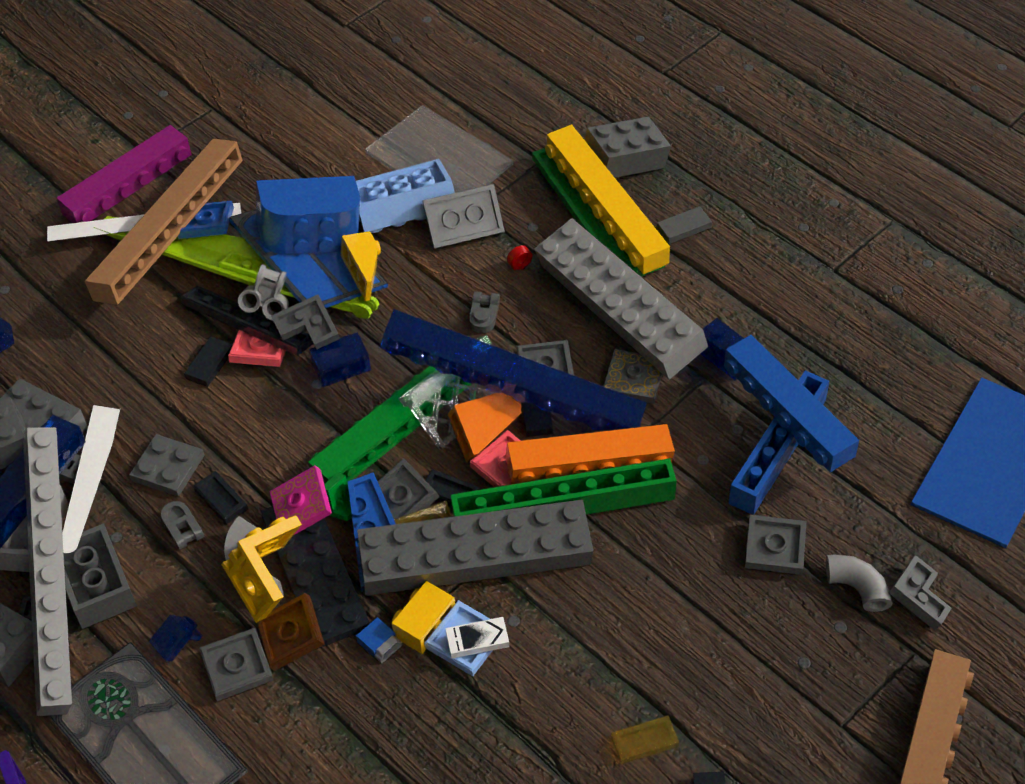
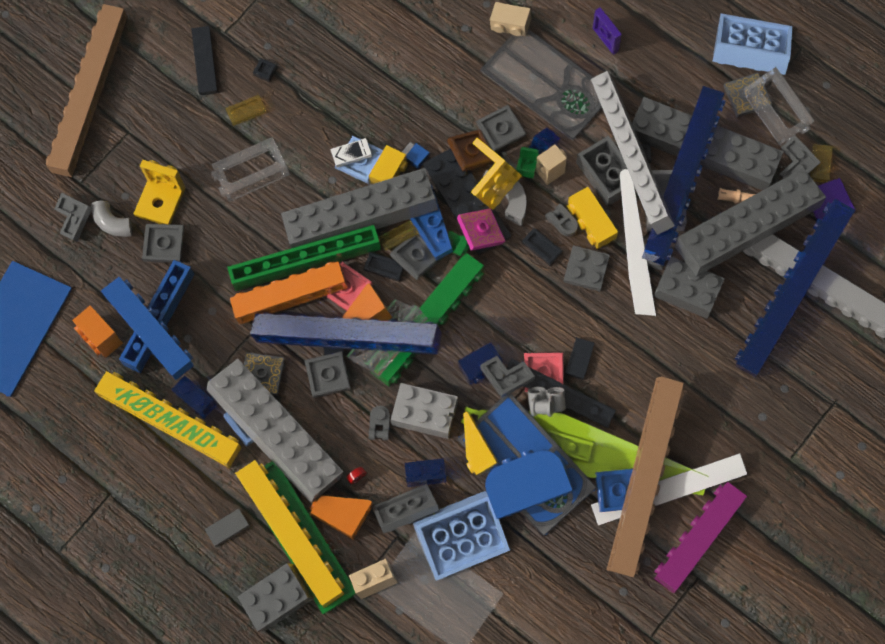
camera: 175 degrees right, 20 degrees up
(138, 521) = (592, 218): none -> yellow brick
(172, 587) = (551, 164): none -> tan brick
(210, 603) = (527, 162): none -> green bracket
(425, 302) = (424, 410): none -> light grey piece
(433, 252) = (425, 472): none -> clear blue brick
(511, 158) = (373, 579): none -> tan brick
(535, 220) = (342, 513): none -> orange slope
(646, 654) = (254, 181): none -> clear piece
(783, 339) = (167, 419): none -> yellow brick
(783, 609) = (163, 185): none -> yellow bracket
(867, 420) = (96, 332): none -> orange brick

